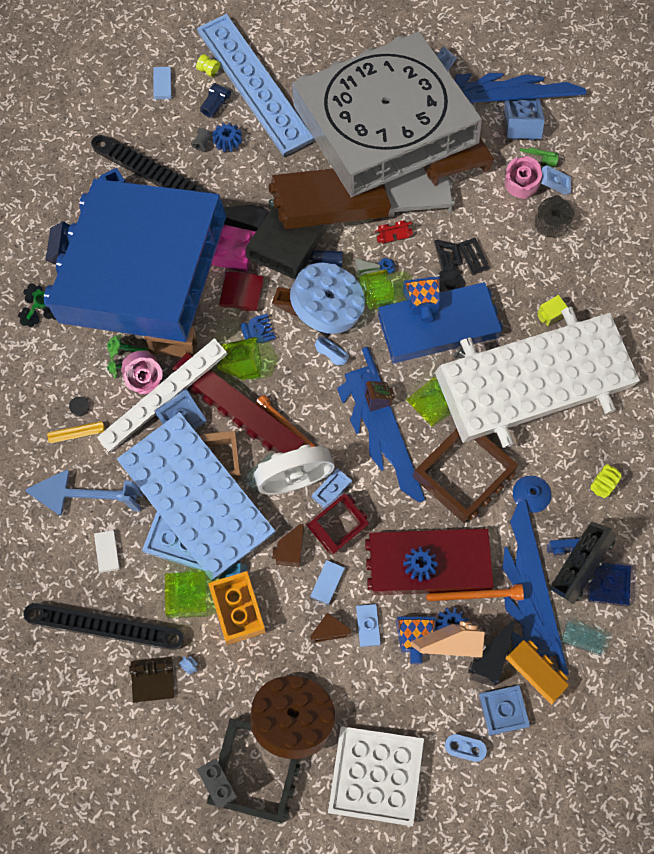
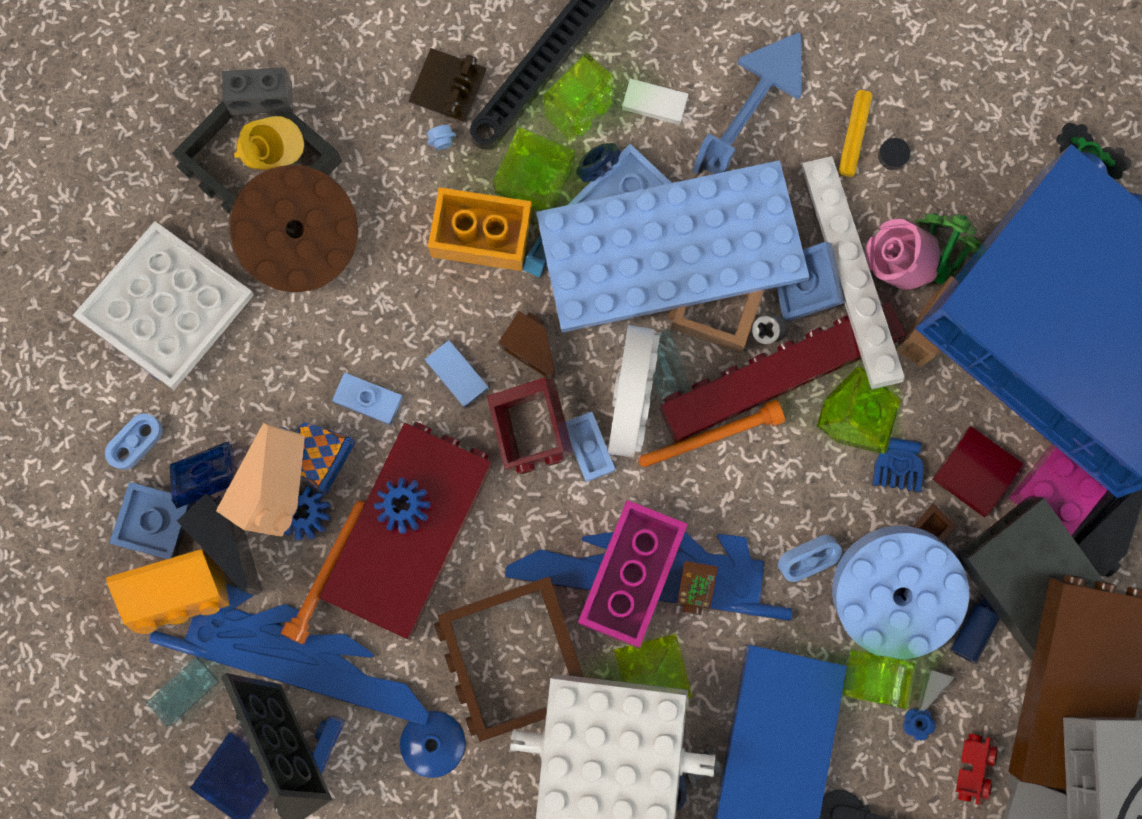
camera: 120 degrees right, 10 degrees up
(128, 589) = (579, 97): none -> clear neon green brick
(161, 568) = (598, 162): none -> dark blue gear
(221, 420) = (759, 329): none -> bush
(248, 757) = (269, 143): none -> yellow piece
(330, 629) = (386, 342): reddish brown slope -> none
(390, 429) = (632, 574): none -> dark pink brick
(422, 296) = (827, 744): blue torso -> none
(462, 691) = (202, 474): none -> clear blue tile

